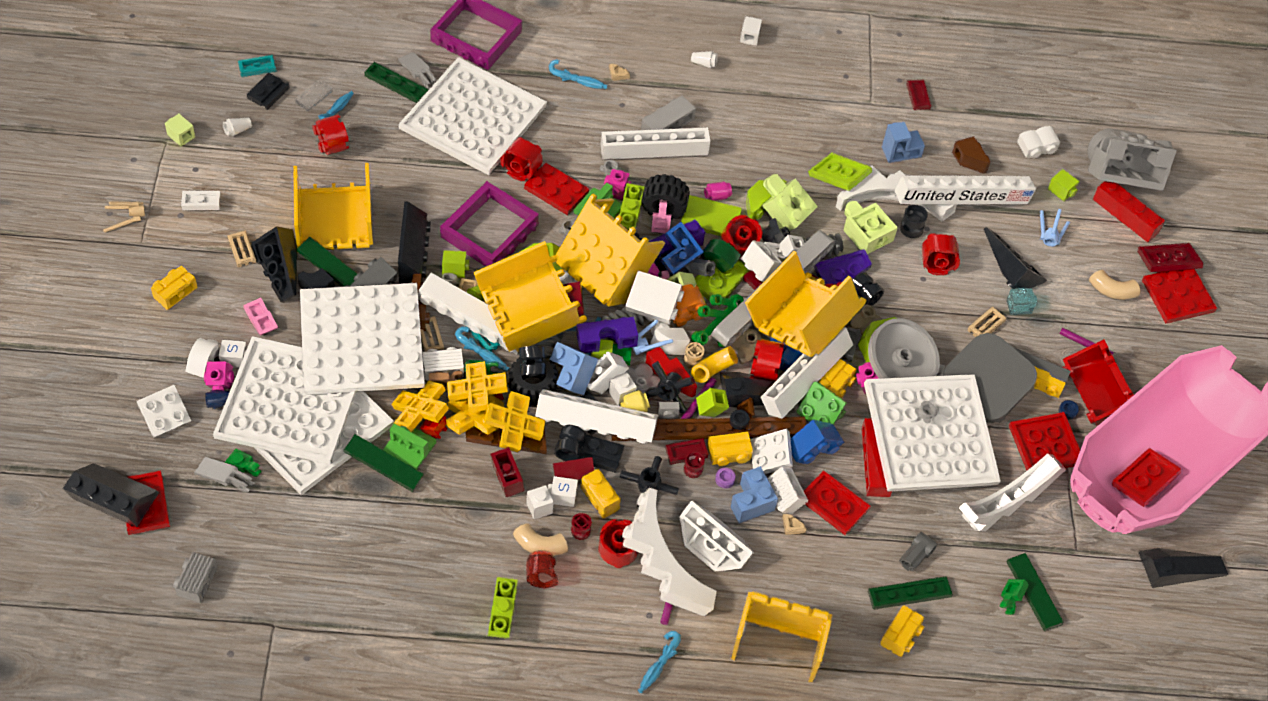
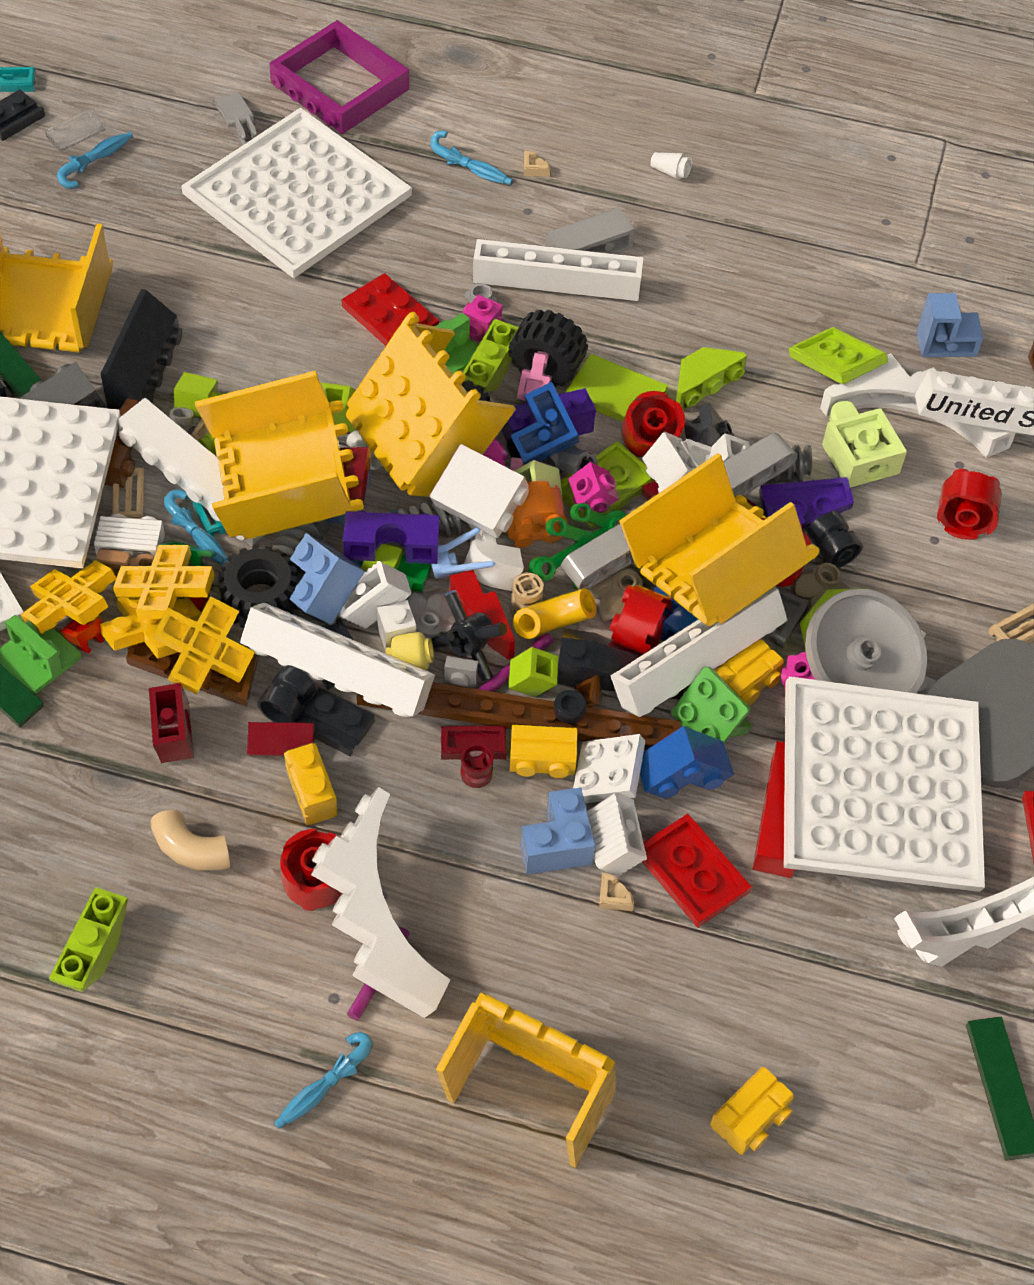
camera: 15 degrees right, 0 degrees up
(331, 135) = (75, 184): red brick -> none
(395, 82) = (198, 129): dark green tile -> none
(449, 228) = (251, 317): magenta window -> none
(522, 159) = (346, 261): red brick -> none
(532, 353) = (258, 544): black wheel -> none
(539, 502) = (208, 780): white brick -> none
(541, 562) = (175, 878): clear red helmet -> none
(563, 491) = (252, 769): white brick -> none
(579, 530) = (268, 836): dark red wheel -> none
(650, 474) = (398, 767): black bar -> none
(712, 539) = (471, 892): white wedge -> none
(717, 282) = (594, 487): none -> dark pink brick
(718, 191) = (637, 354): dark pink brick -> none
(721, 253) = (611, 446): dark green brick -> none
(725, 478) = (524, 796): medium lavender tile -> none
(750, 31) = (753, 135): white brick -> none
(780, 203) = (728, 388): yellowish green brick -> none
(910, 592) = (784, 1046): dark green tile -> none
(913, 221) = (938, 448): black wheel -> none
(918, 95) = (994, 264): dark red tile -> none
(920, 548) = (821, 973): dark grey piece -> none
(929, 408) = (887, 745): light grey plate -> none
(1012, 592) = (962, 1081): green plate -> none

